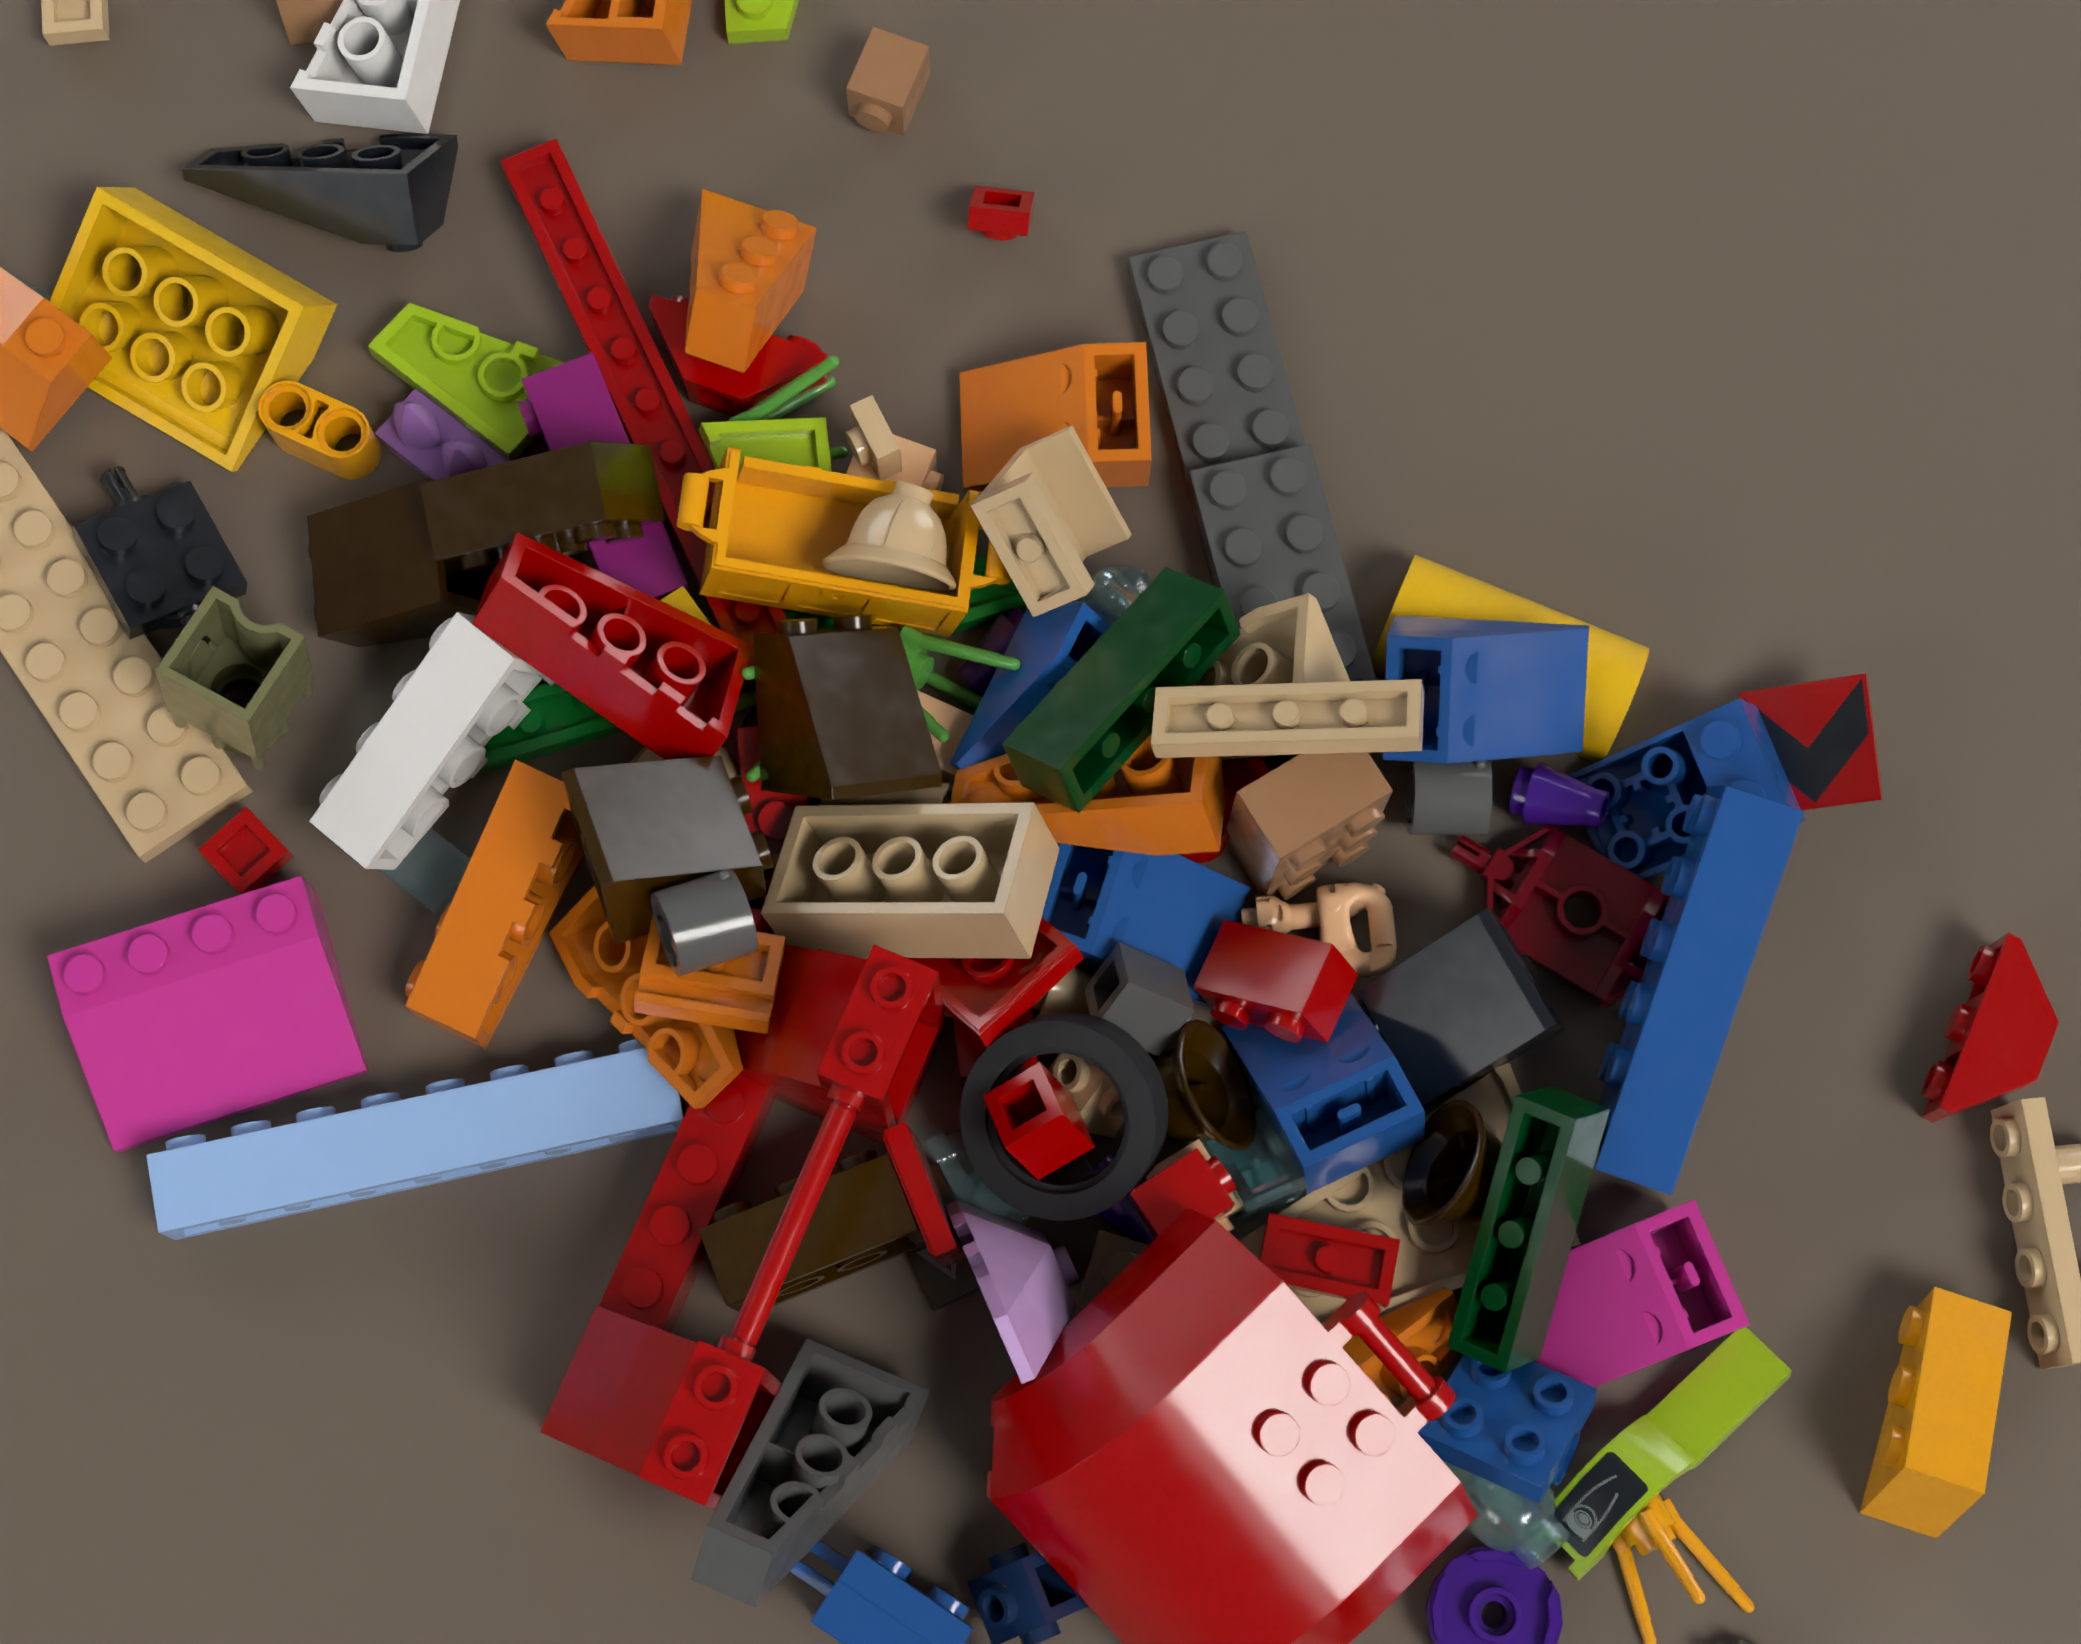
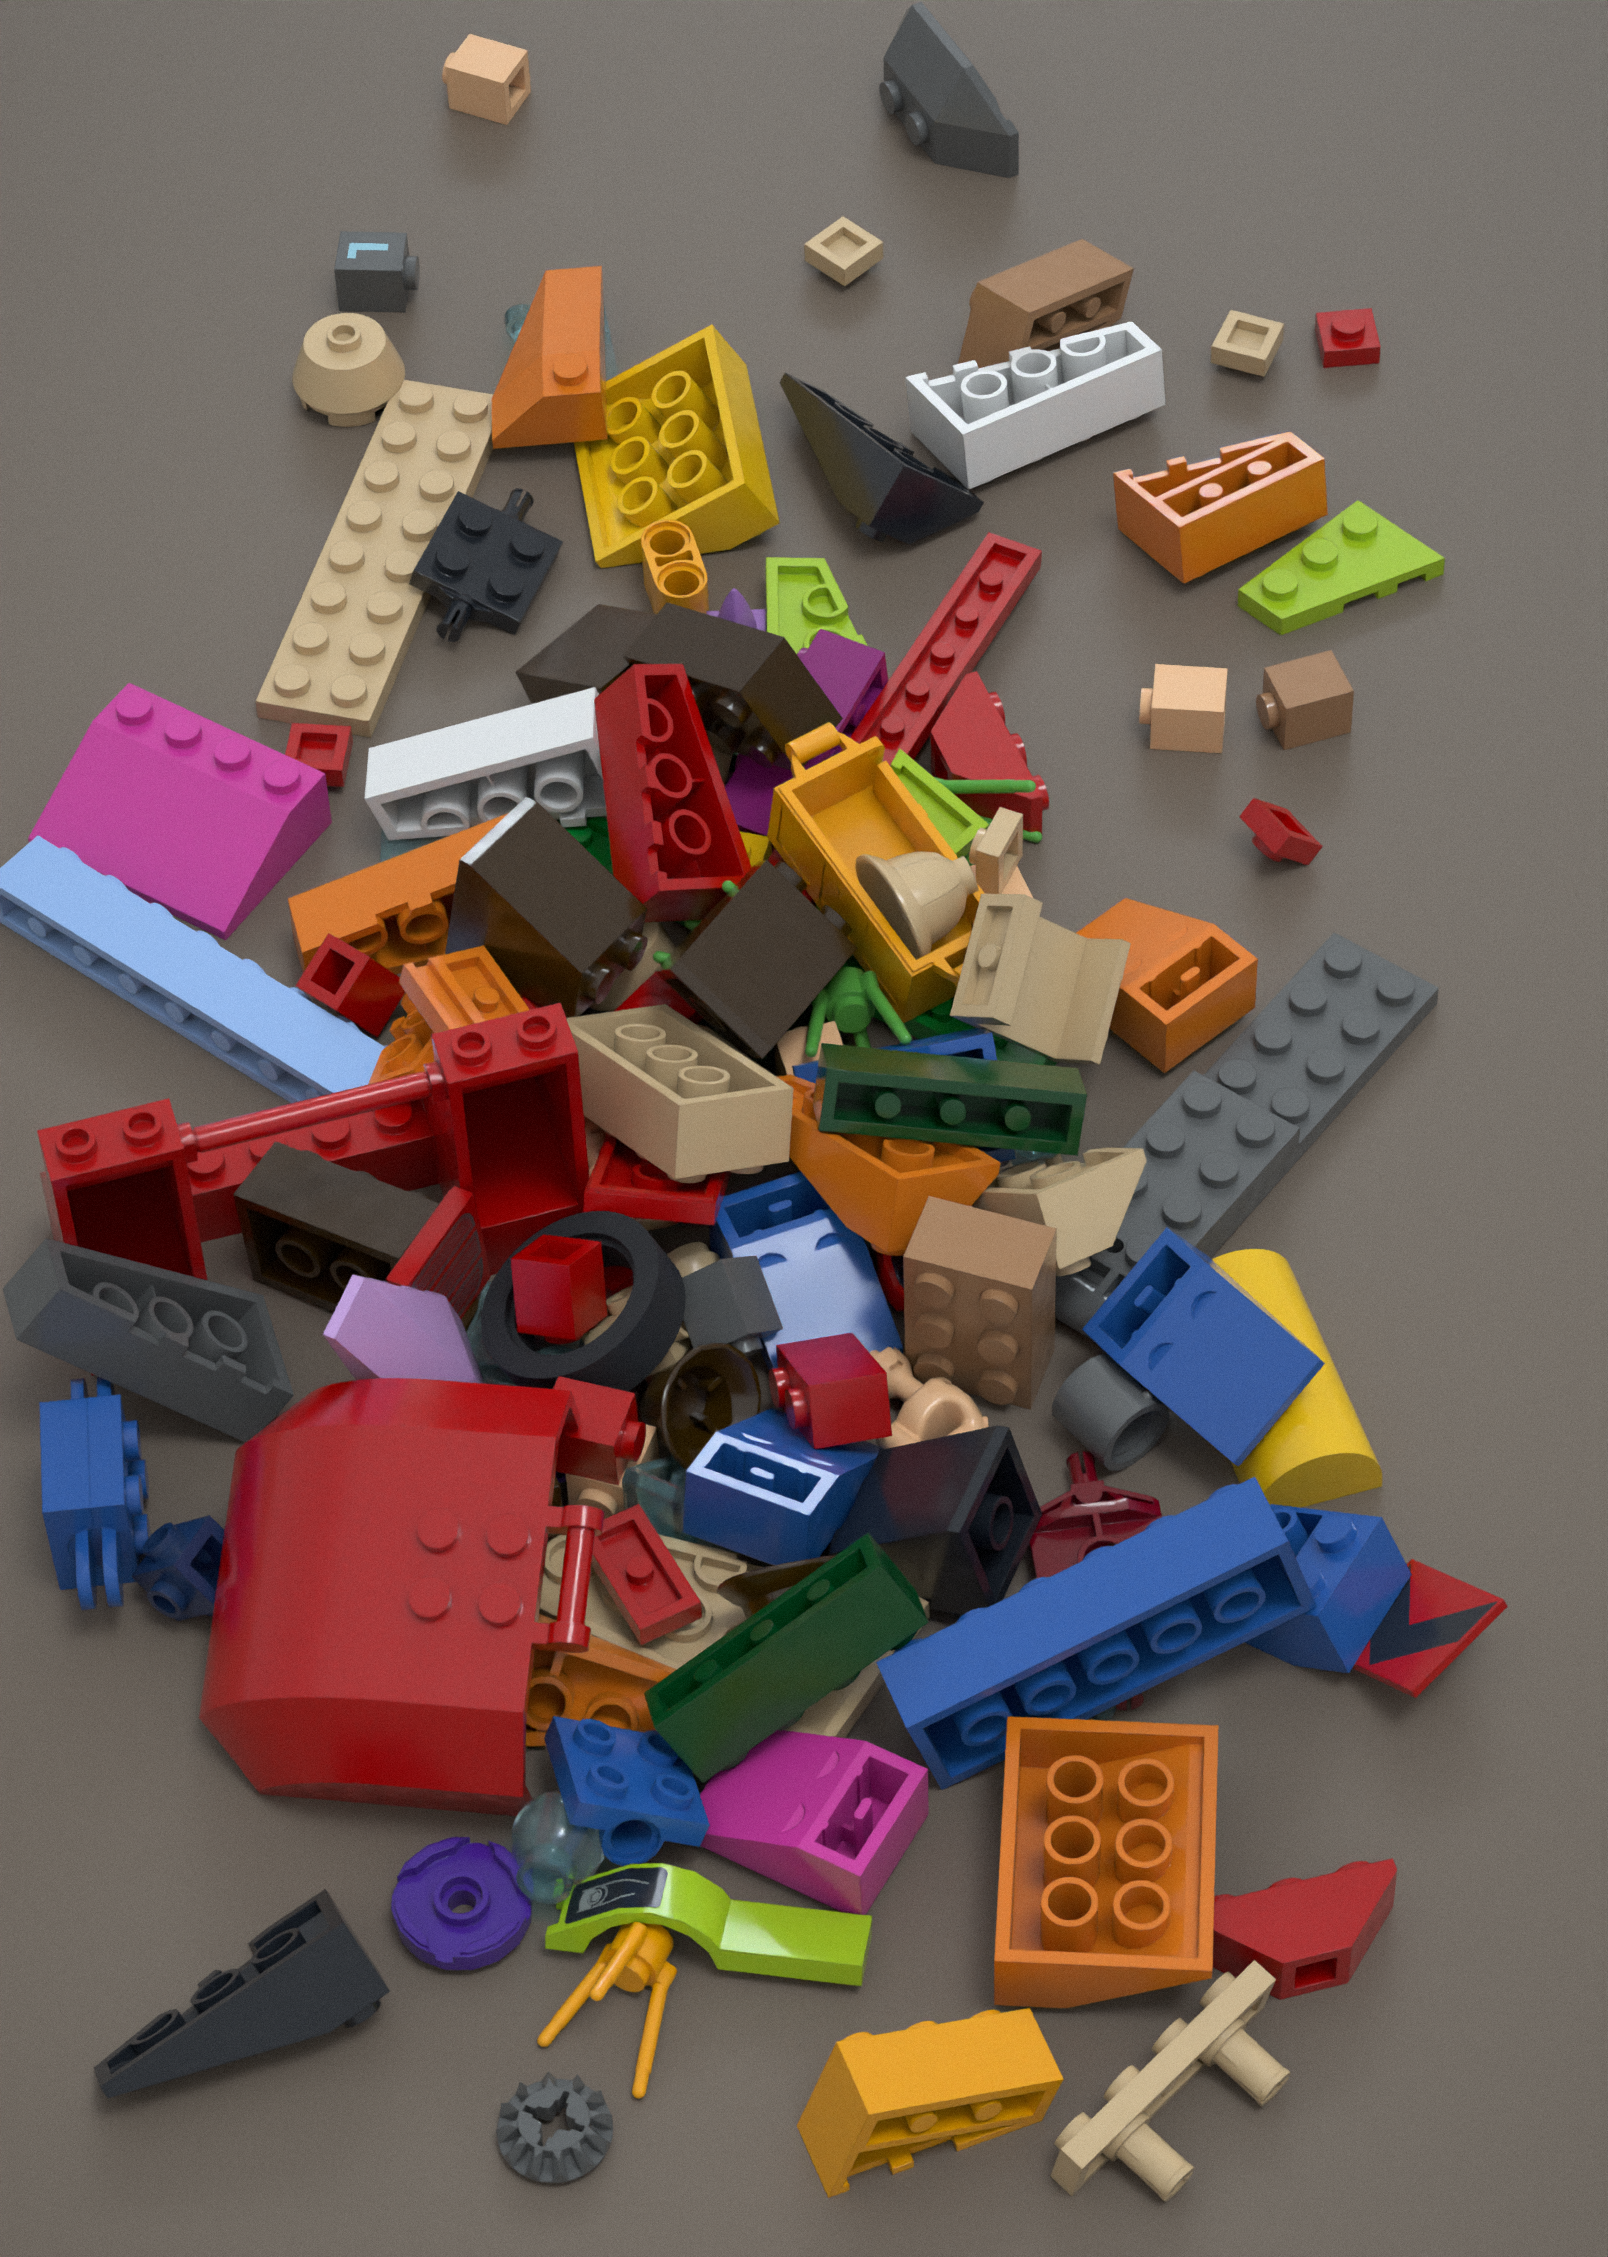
camera: 55 degrees right, 25 degrees down
(238, 655) = (427, 652): olive piece -> none
(540, 1023) = (352, 984): none -> red brick
(704, 922) = (499, 956): dark grey piece -> none
(742, 278) = (1039, 704): orange wedge -> none
(816, 171) = (1185, 708): none -> light nougat brick
(1288, 718) = (1017, 1180): tan plate -> none
(1555, 798) = (1176, 1477): dark purple cone -> none
(1853, 1131) = (1104, 1860): none -> orange slope

